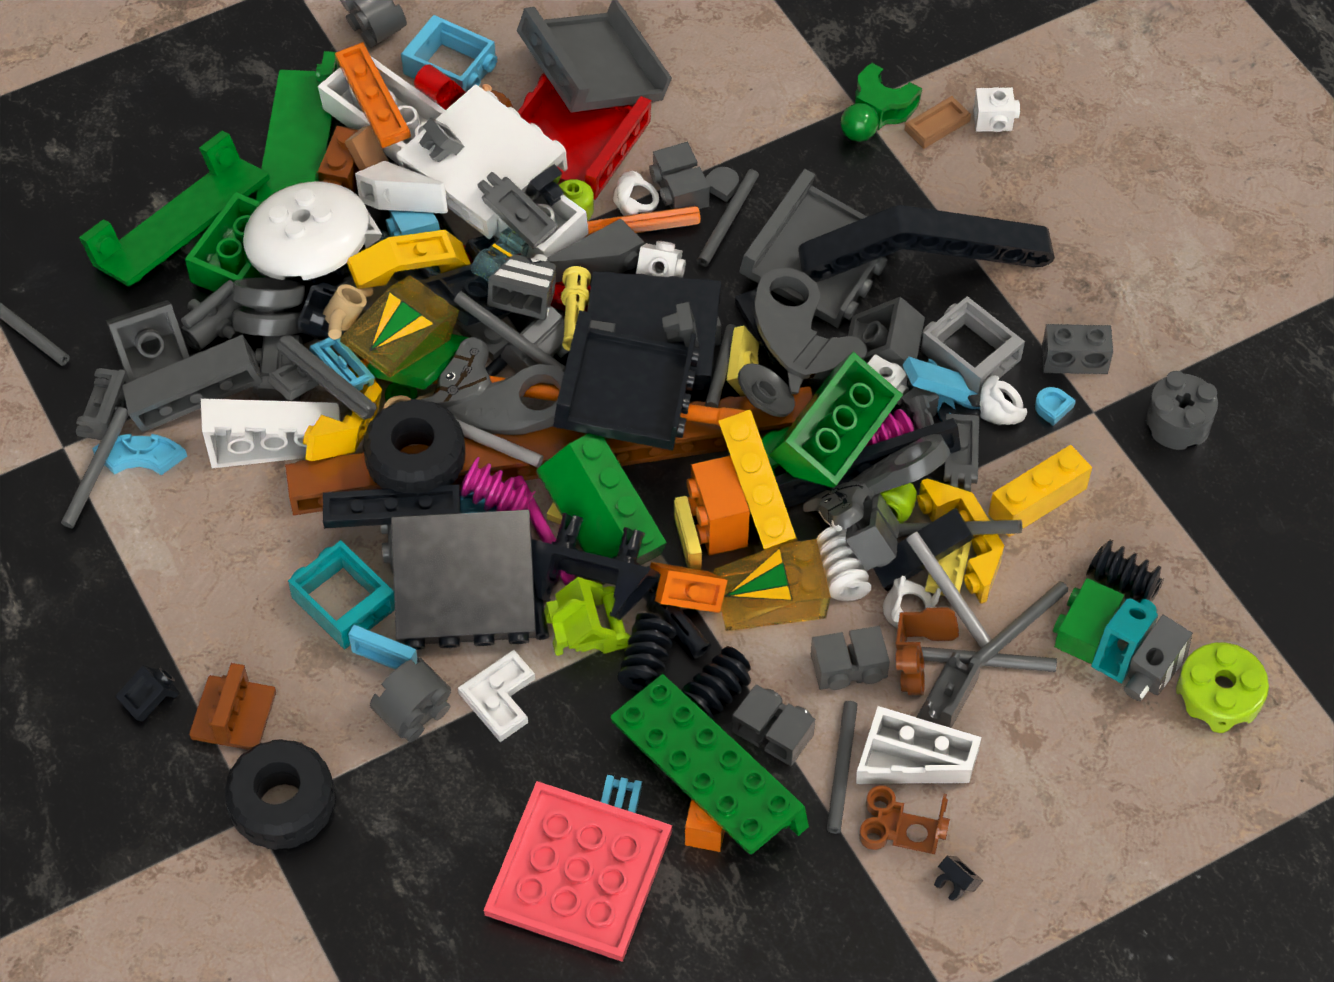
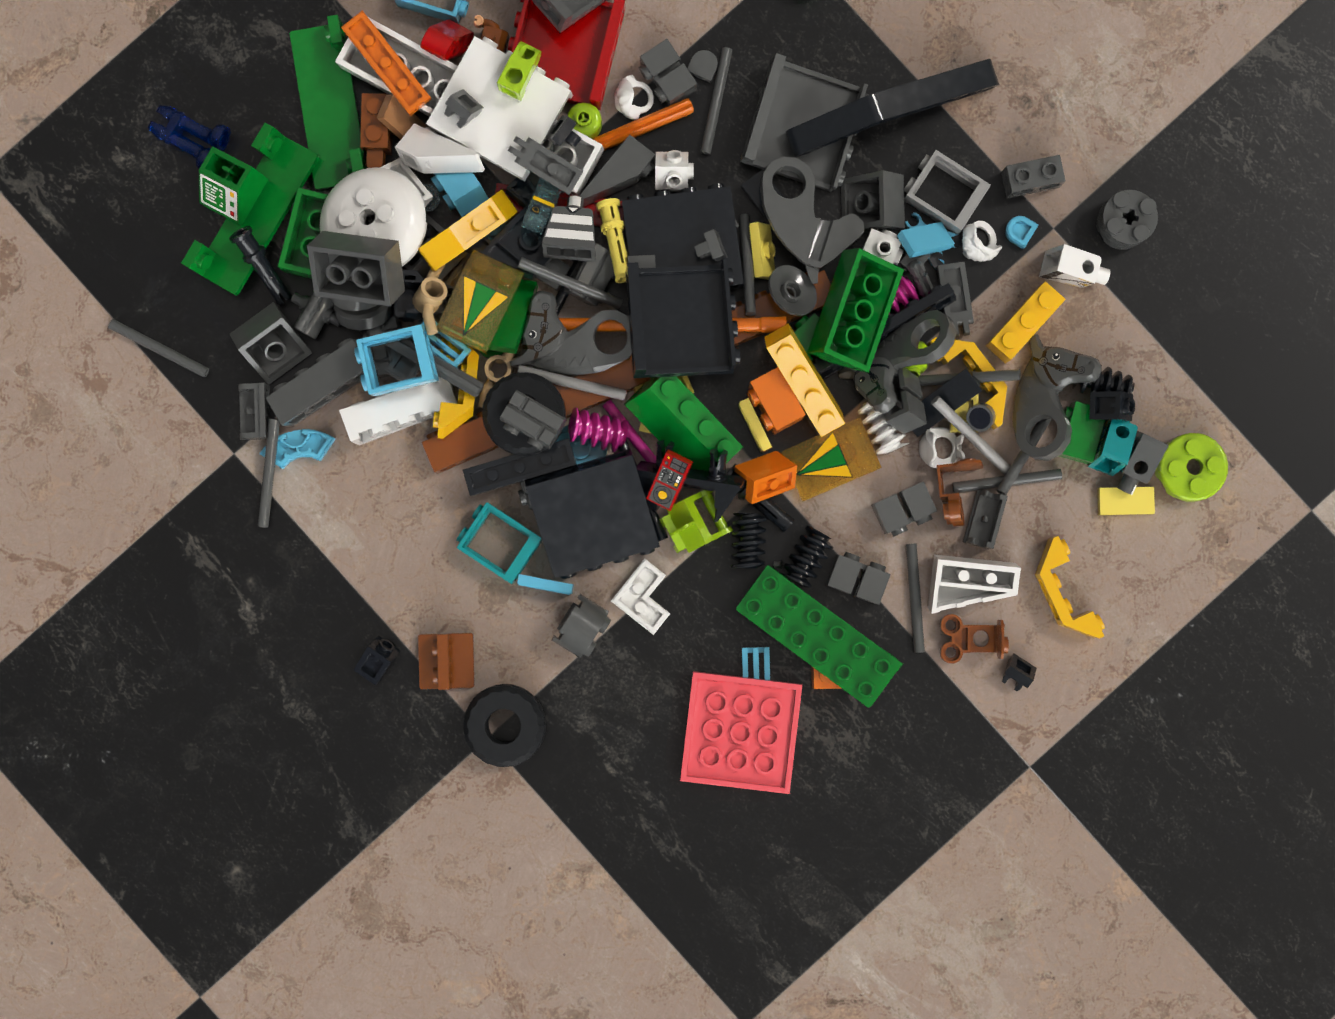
camera: 10 degrees left, 30 degrees up
(146, 157) = (216, 137): none -> clear blue piece
(162, 181) = (229, 185): none -> green slope
(163, 244) = (255, 255): none -> black pin
(271, 253) = (356, 268): none -> dark grey brick
(284, 330) = (424, 353): none -> medium azure window
(421, 438) = (532, 420): none -> dark grey brick
(512, 117) = (519, 70): none -> lime leg
(566, 550) = (669, 480): none -> tile
(965, 570) = (980, 417): none -> tile
(1045, 568) = (1038, 395): none -> dark grey animal
(1052, 834) = (1053, 556): none -> yellow slope
(1111, 442) = (1073, 267): none -> white torso
(1122, 711) = (1117, 502): none -> light yellow tile
(1129, 581) = (1111, 406): none -> black bracket

